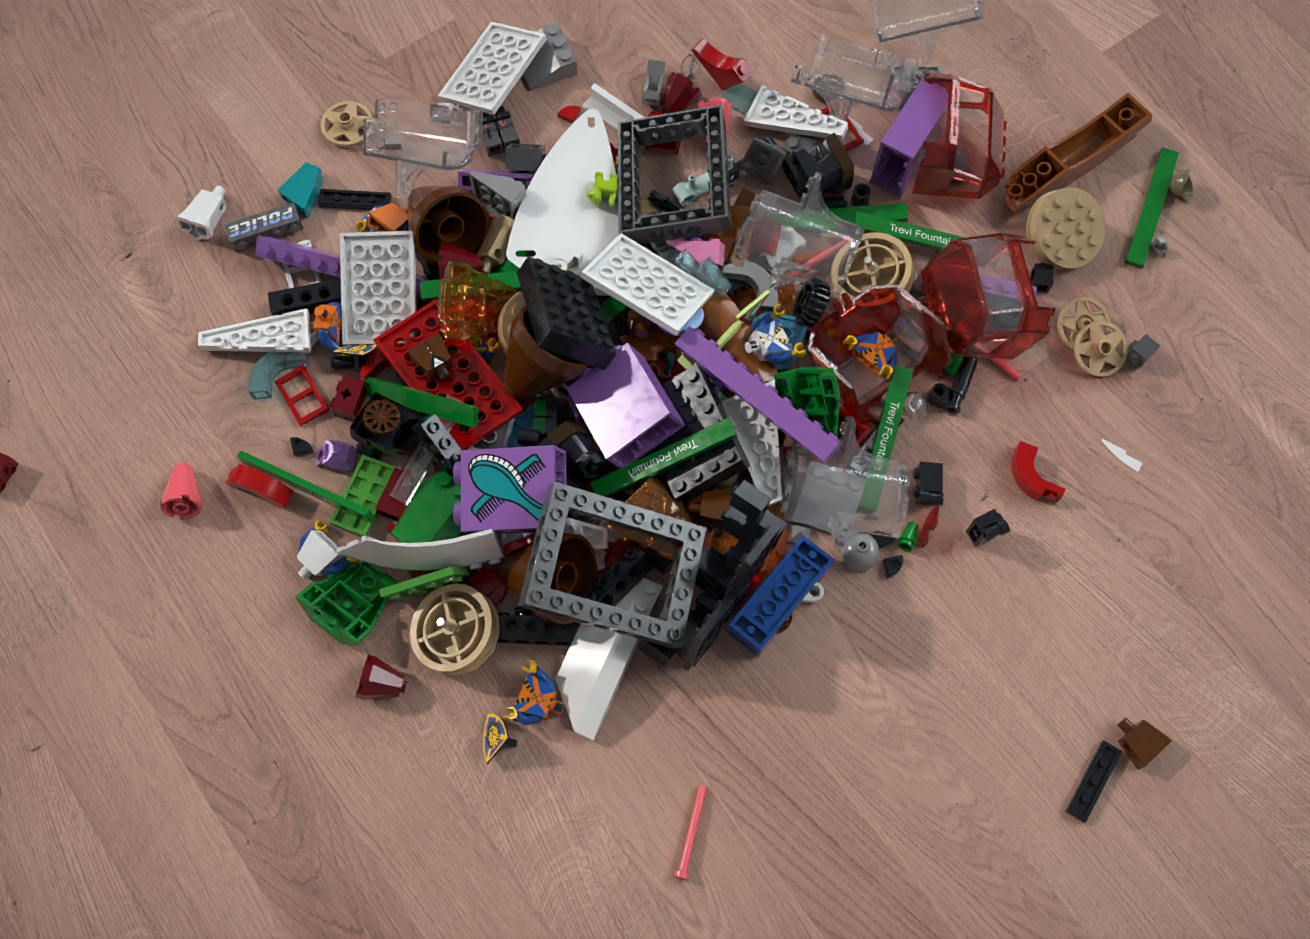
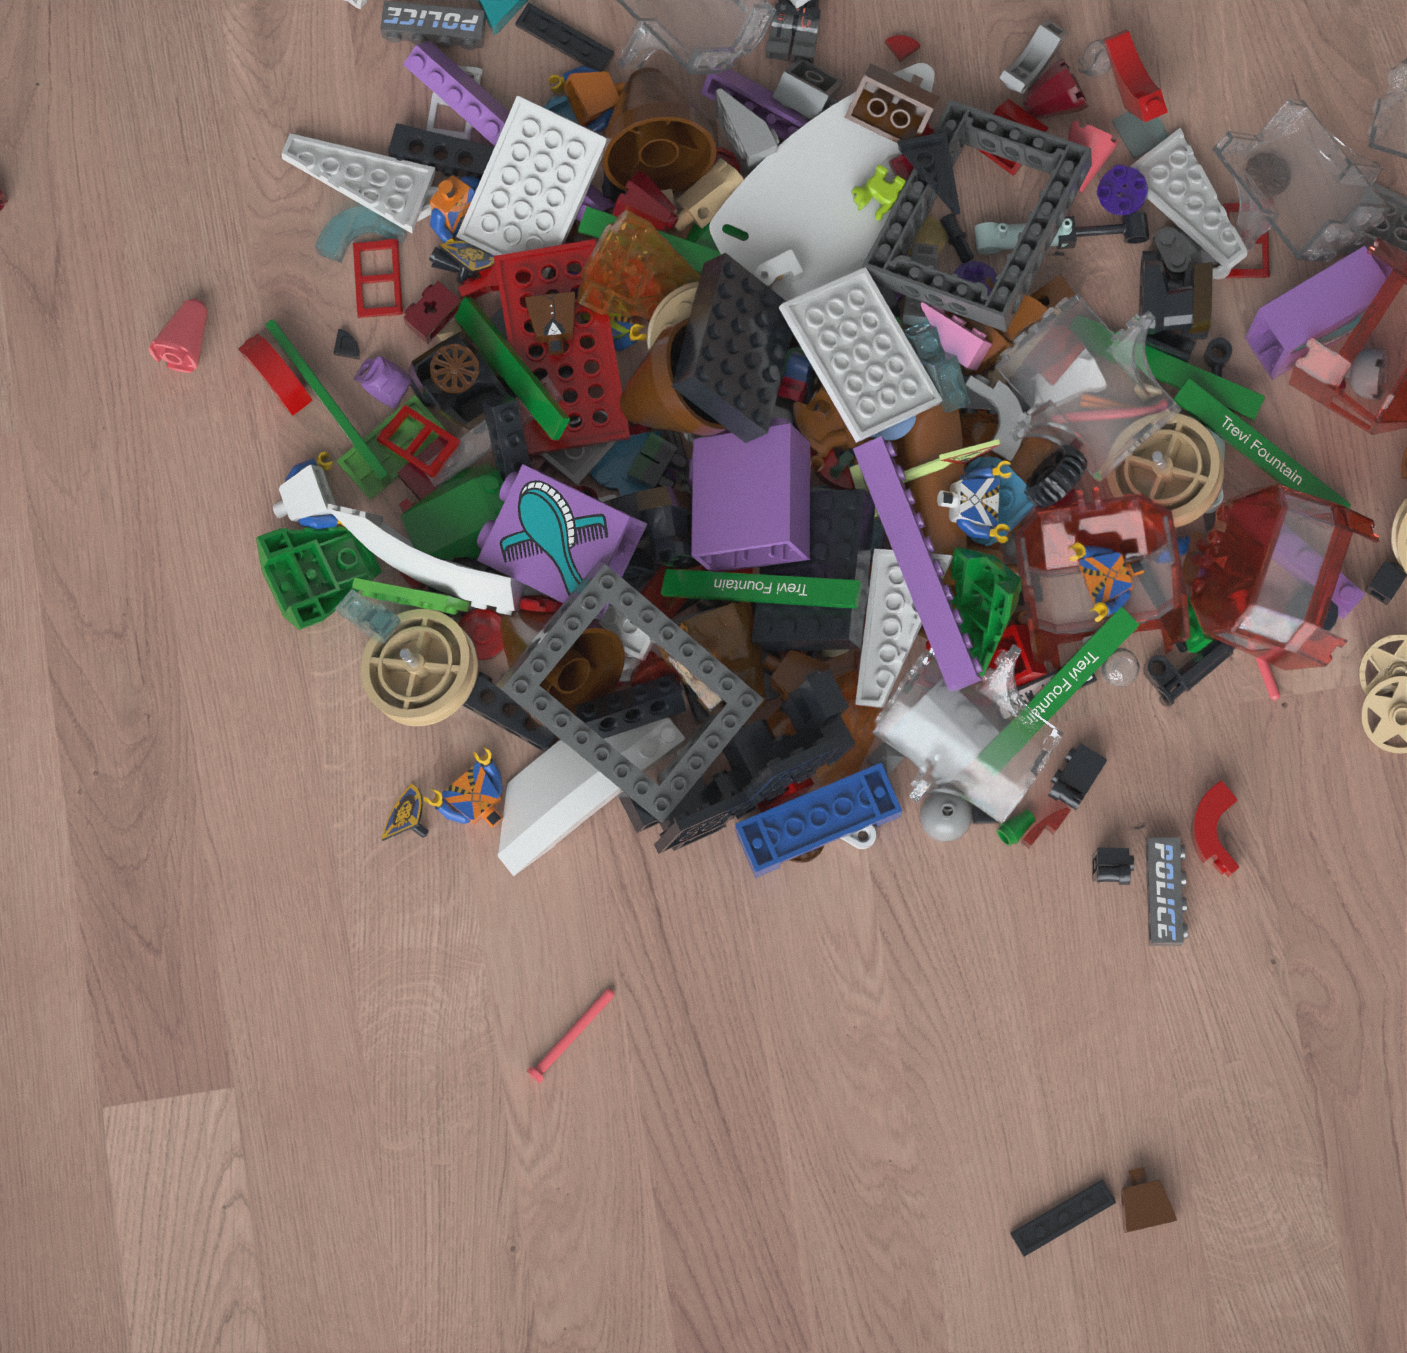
camera: 30 degrees right, 10 degrees up
(355, 488) = (437, 464): none -> red window
(379, 680) = (306, 683): dark red cone -> none
(405, 613) = (370, 619): none -> clear light blue arch
(528, 437) = (618, 480): black piece -> none
(585, 138) = (891, 105): none -> reddish brown slope
(609, 168) = (901, 167): none -> dark red tile
(610, 107) = (959, 70): white panel -> none
(613, 319) = (796, 377): none -> leg
(629, 155) = (933, 162): none -> black wing
(742, 129) = (1113, 184): none -> dark purple plate
(762, 160) = (1113, 243): flat silver slope -> none
(867, 139) = (1276, 271): white sticker -> none
(892, 565) = (977, 852): black tile -> none
(1027, 529) = (1165, 891): none -> flat silver brick
(1121, 454) = (1344, 860): white sticker -> none

